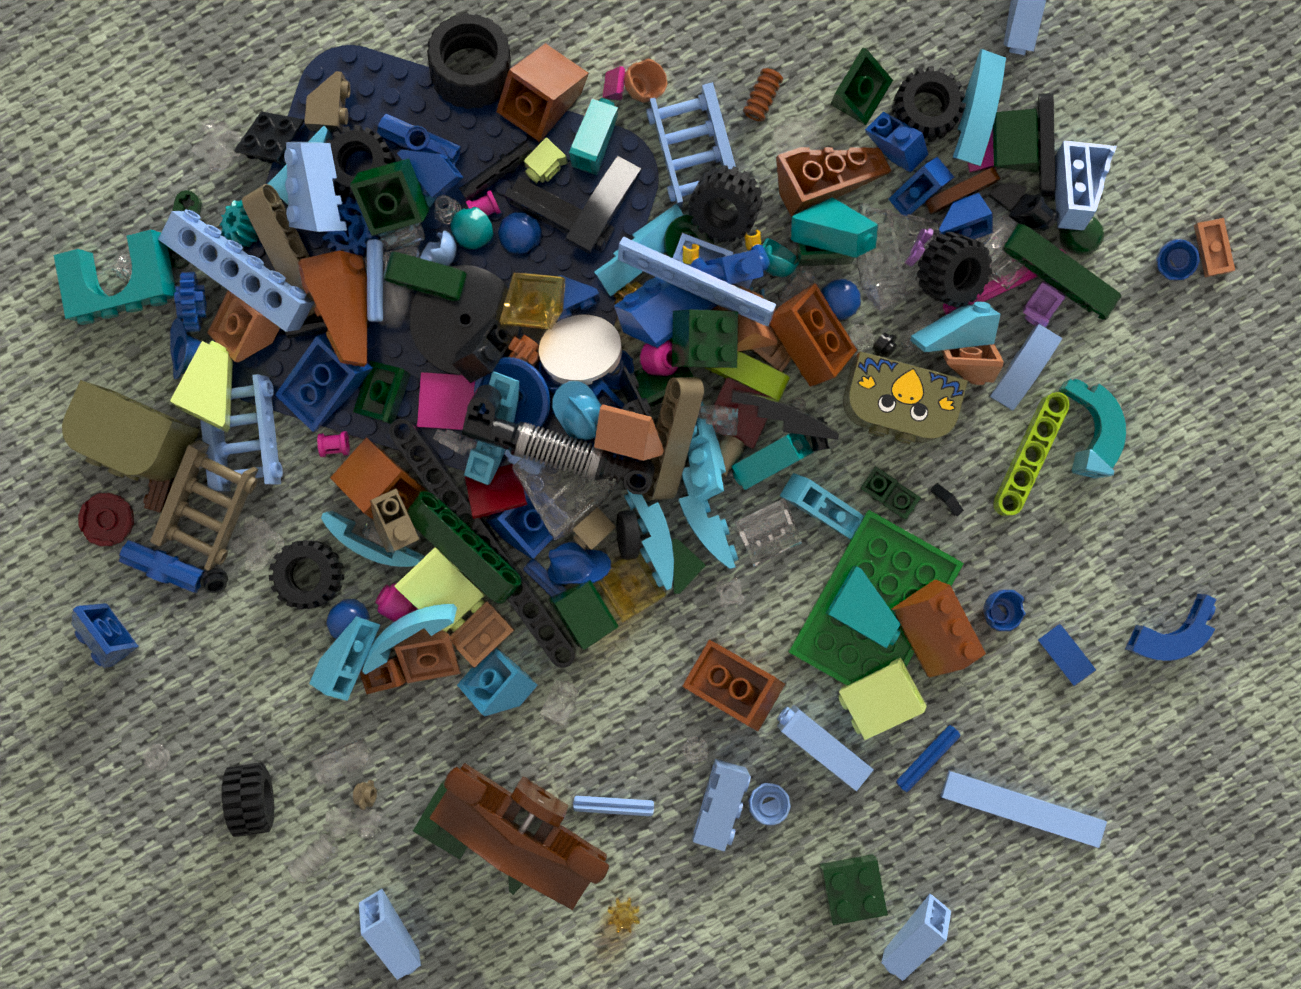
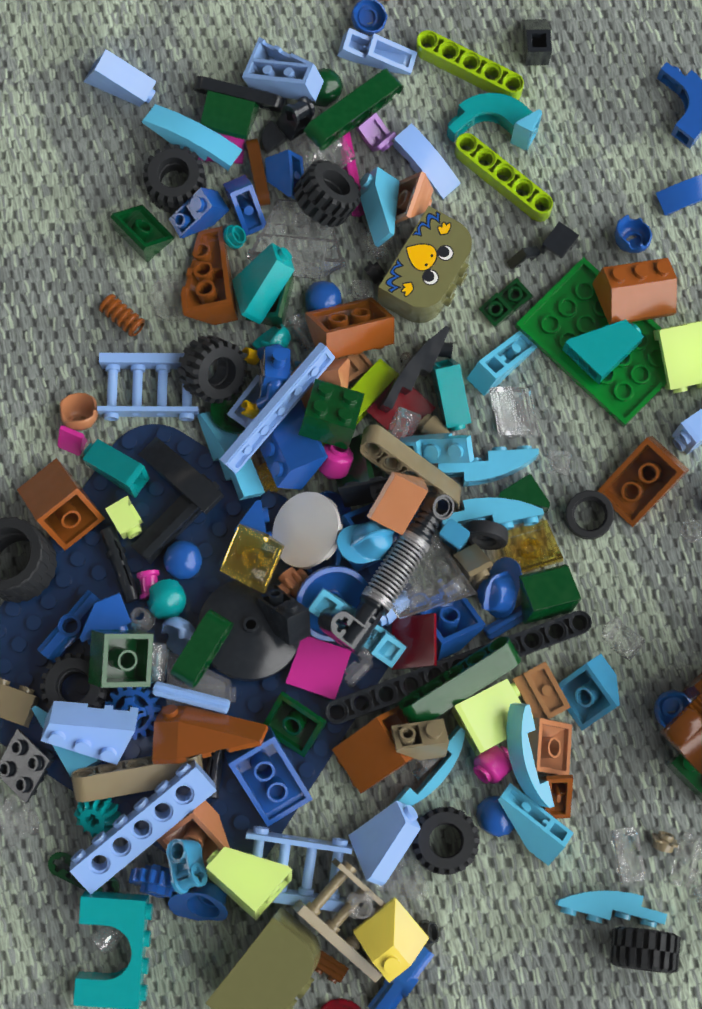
camera: 75 degrees left, 10 degrees down
(191, 545) = (391, 939): none -> light yellow slope
(208, 321) = (186, 864): none -> dark azure piece
(209, 509) = (366, 910): none -> clear plate
(286, 513) = (384, 841): none -> light blue slope
(287, 744) = (599, 906): none -> medium azure slope
(333, 444) = (328, 784): dark pink bush -> none
(509, 766) = (669, 701): none -> blue hair
(614, 501) = (454, 535): none -> dark azure slope
(661, 634) = (594, 496): none -> black tyre
(882, 186) = (234, 236): none -> teal plate
(918, 249) = (302, 219): medium lavender piece -> none
(974, 533) = (560, 240): none -> black panel
(1138, 280) = (376, 52): none -> light blue slope
(1159, 375) = (463, 57): none -> lime beam
(1201, 450) = (536, 42): none -> black slope

